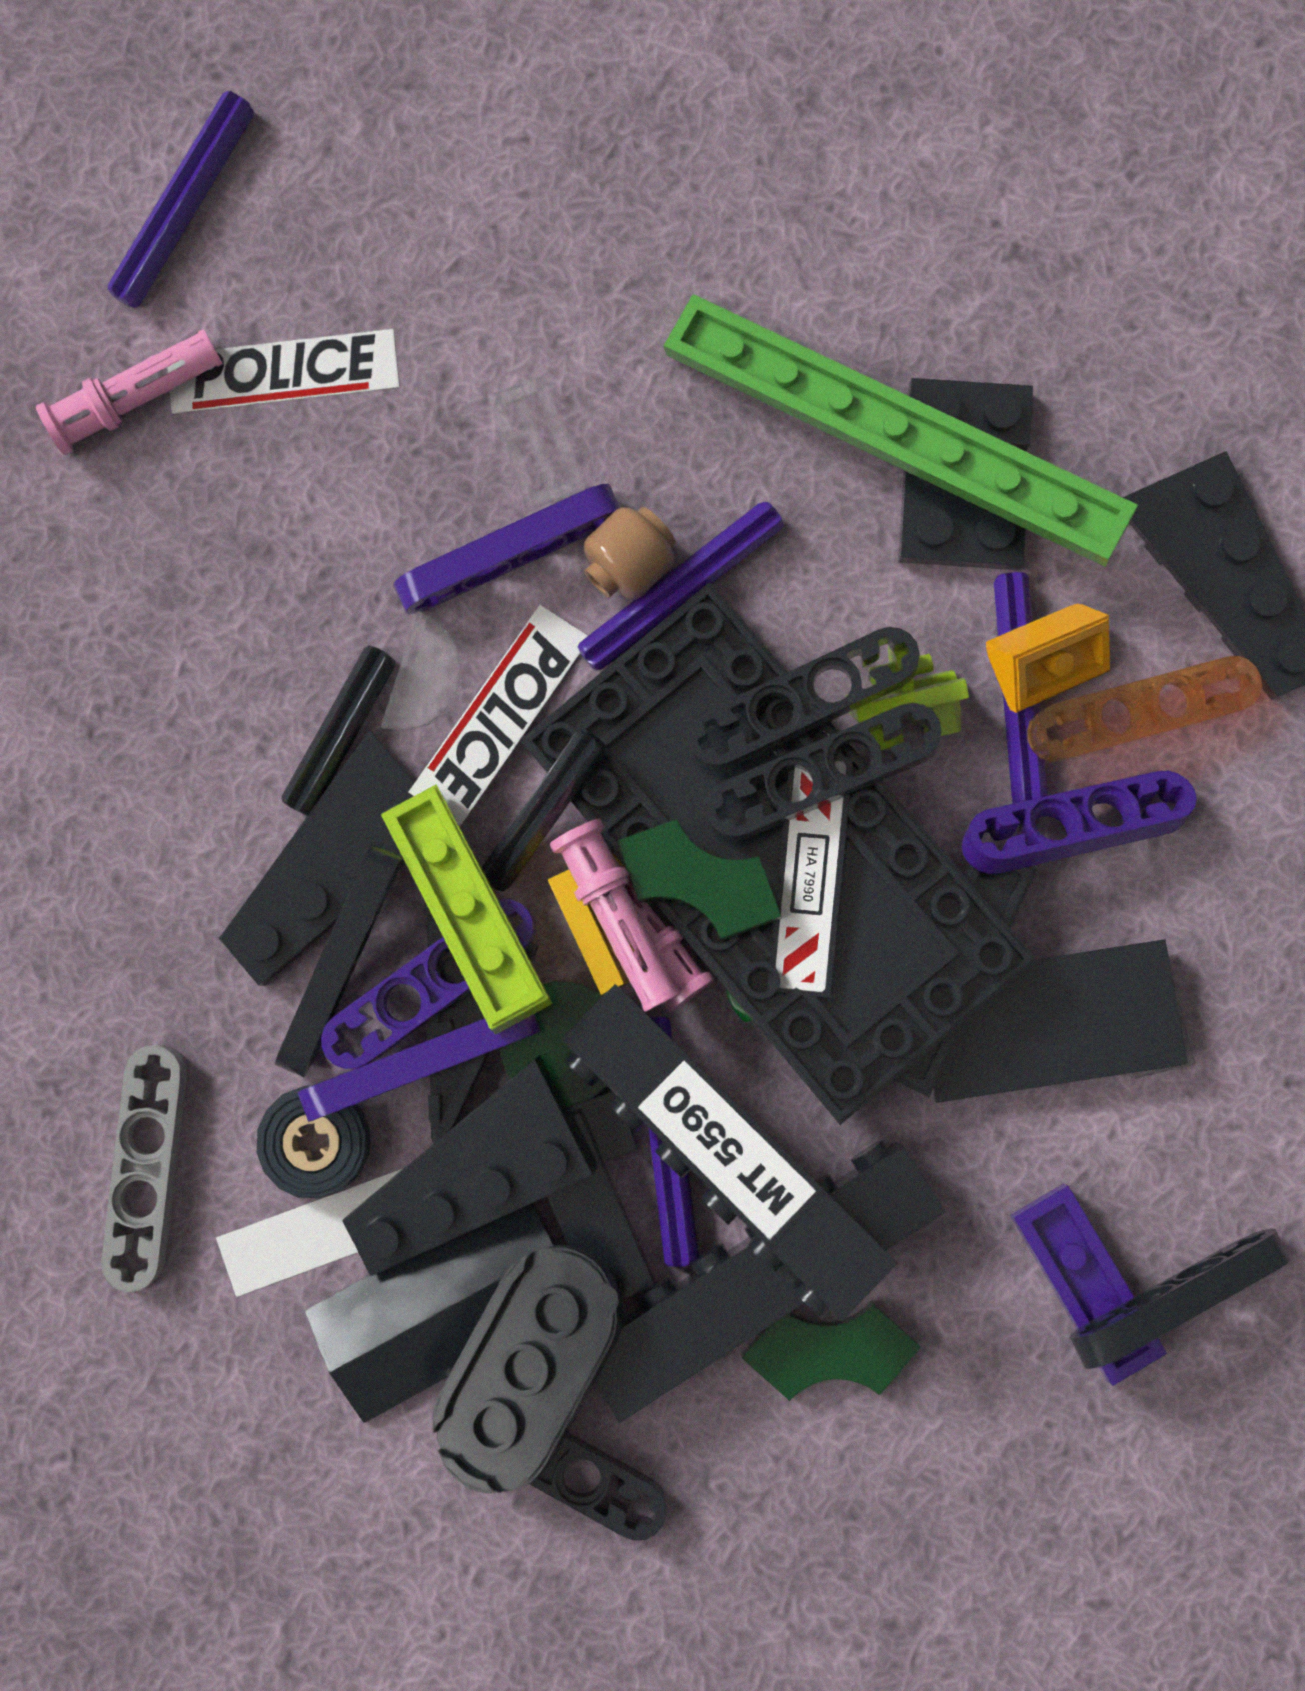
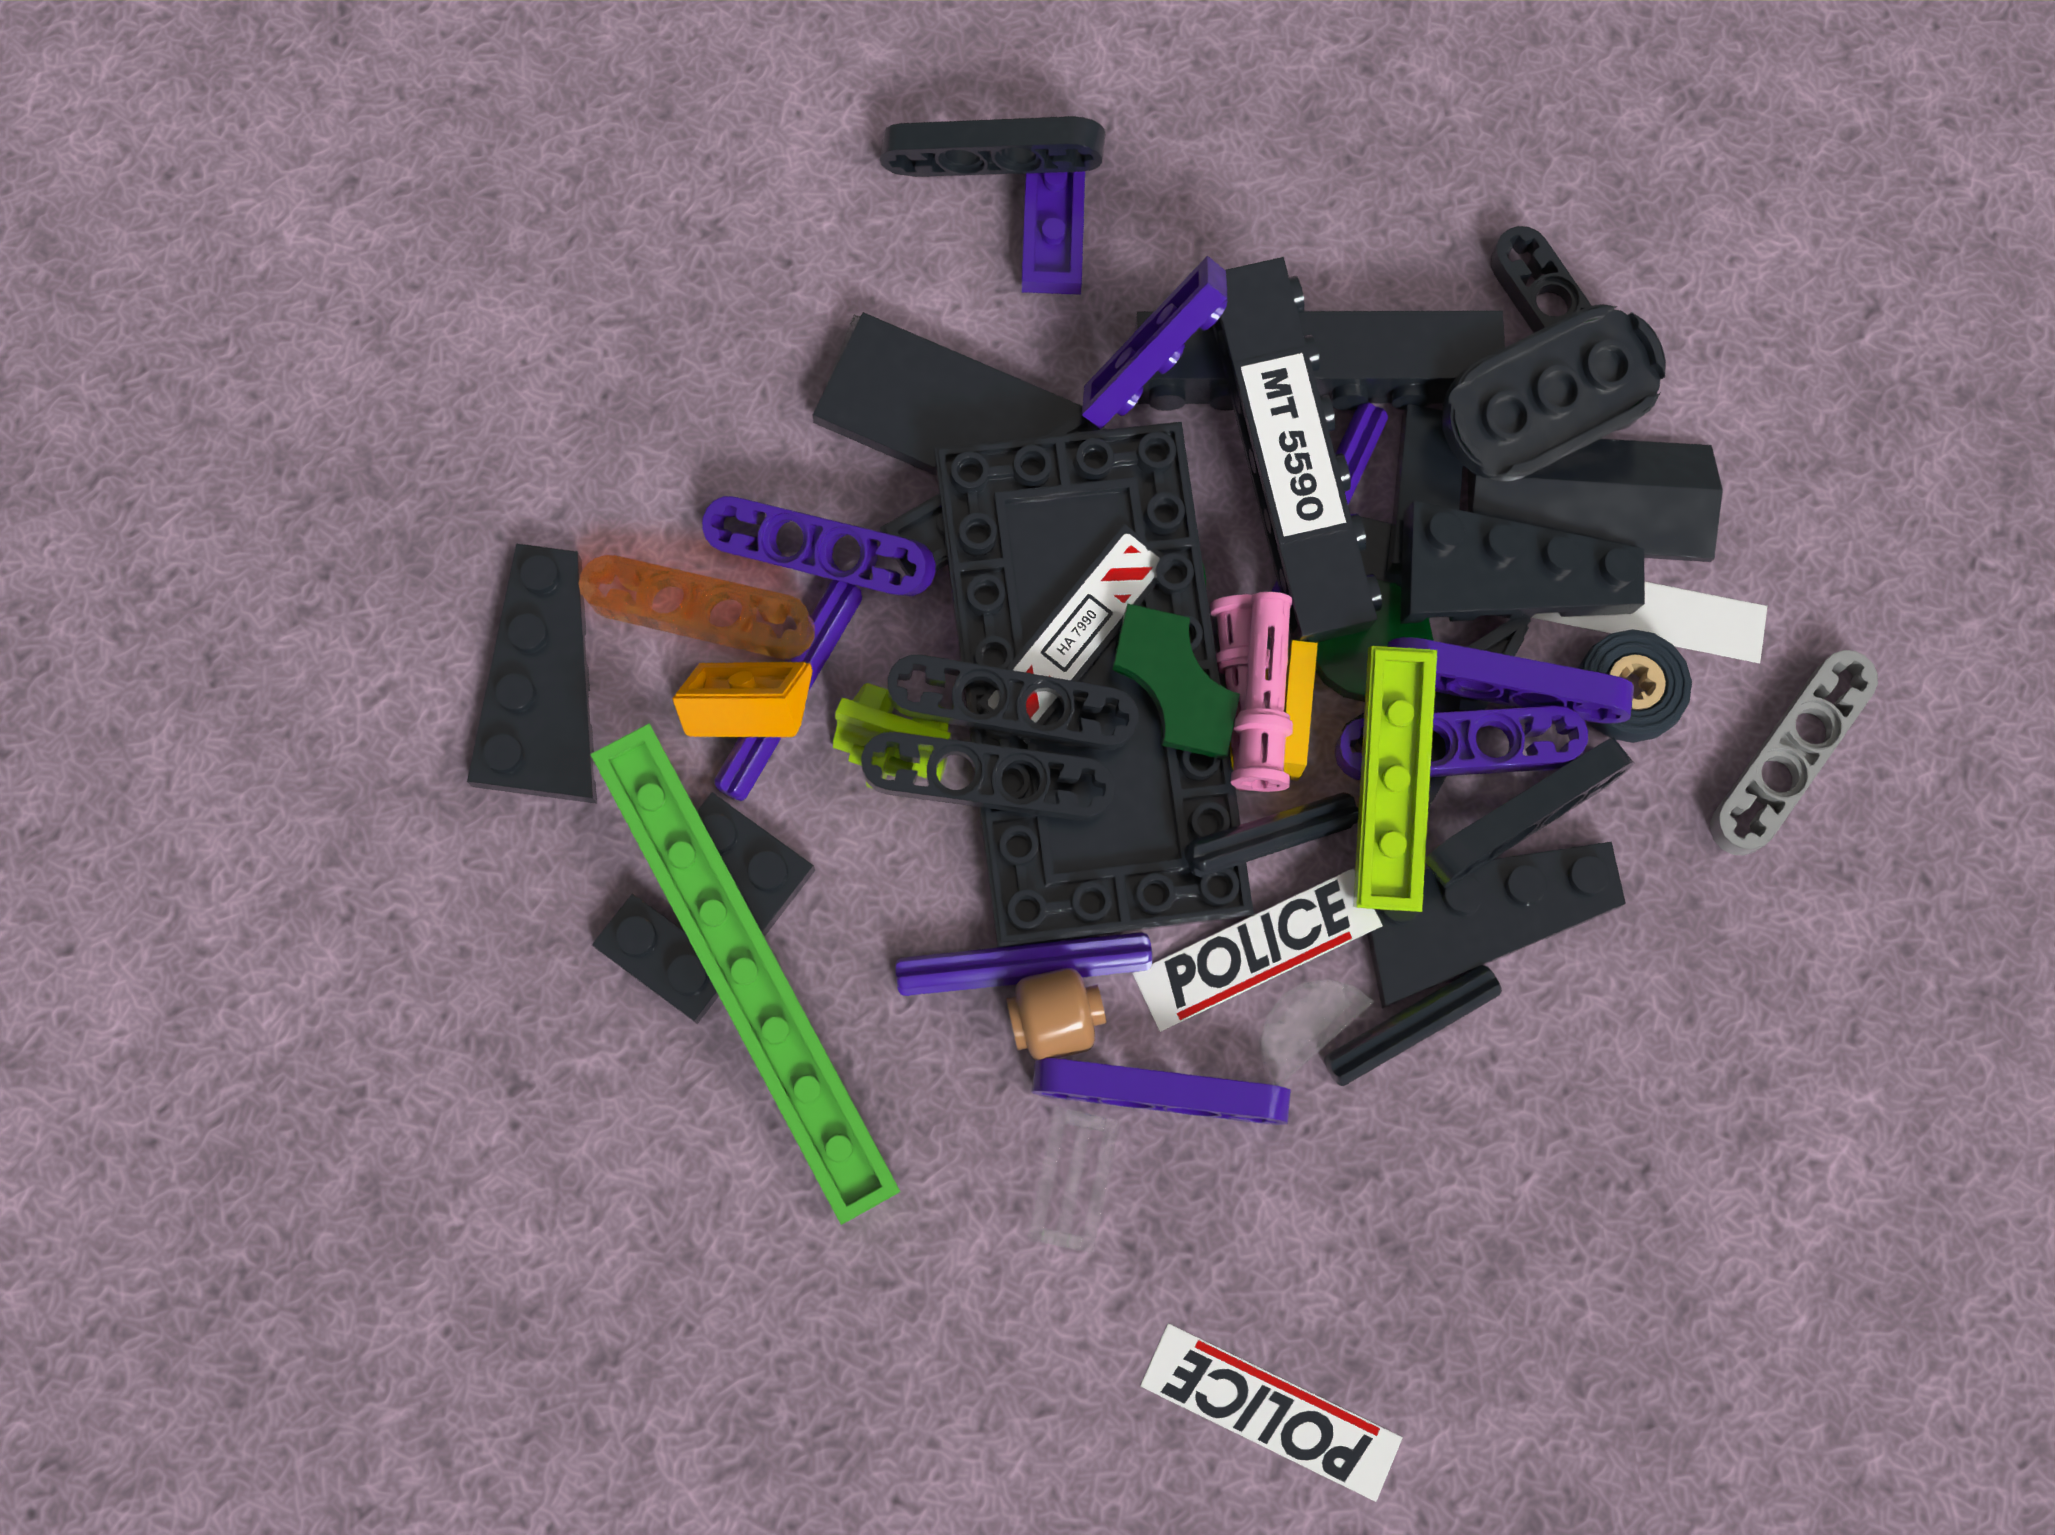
camera: 155 degrees left, 10 degrees down
(96, 395) = (1465, 1480): bright pink pin -> none
(804, 1352) = (1324, 284): dark green tile -> none
(905, 1172) = (1156, 343): none -> dark purple plate

